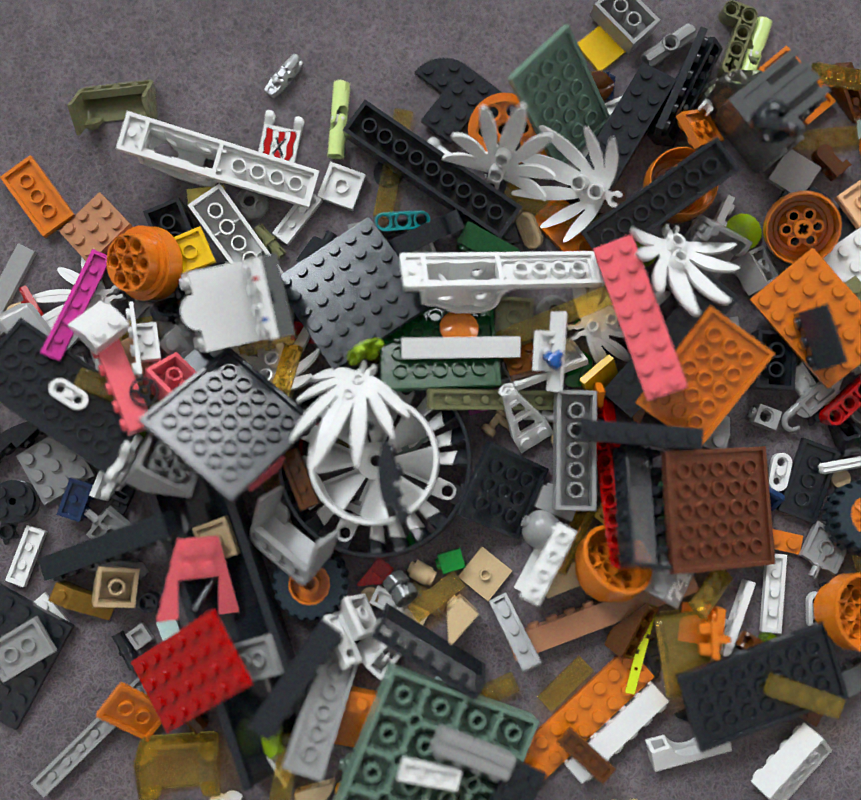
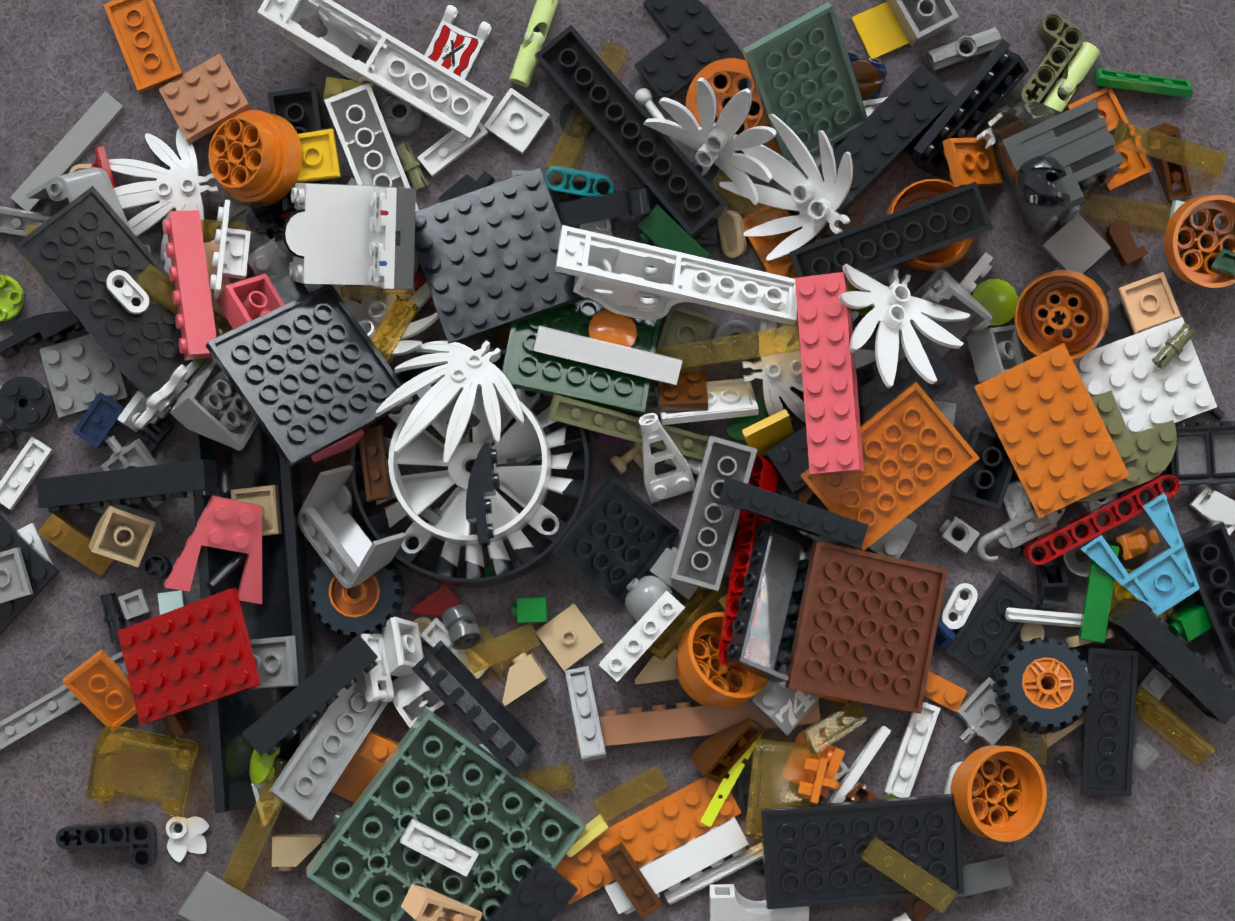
camera: 15 degrees right, 0 degrees up
(75, 305) = (160, 187): dark pink plate -> none
(99, 326) = (184, 221): white slope -> none
(140, 393) = (224, 306): black piece -> none
(365, 349) = (491, 329): lime dish -> none
(421, 572) = (492, 615): tan brick -> none
(472, 753) = (496, 837): light grey brick -> none
(545, 719) = (590, 832): none -> light yellow tile
(551, 341) = (712, 387): white bracket -> none
(553, 360) = (713, 398): blue tile -> none
(600, 393) = (762, 448): orange tile -> none
(657, 720) = (715, 874): none -> white axle
(810, 37) = (1143, 83): none -> green tile
(820, 338) = (1037, 453): black slope -> none

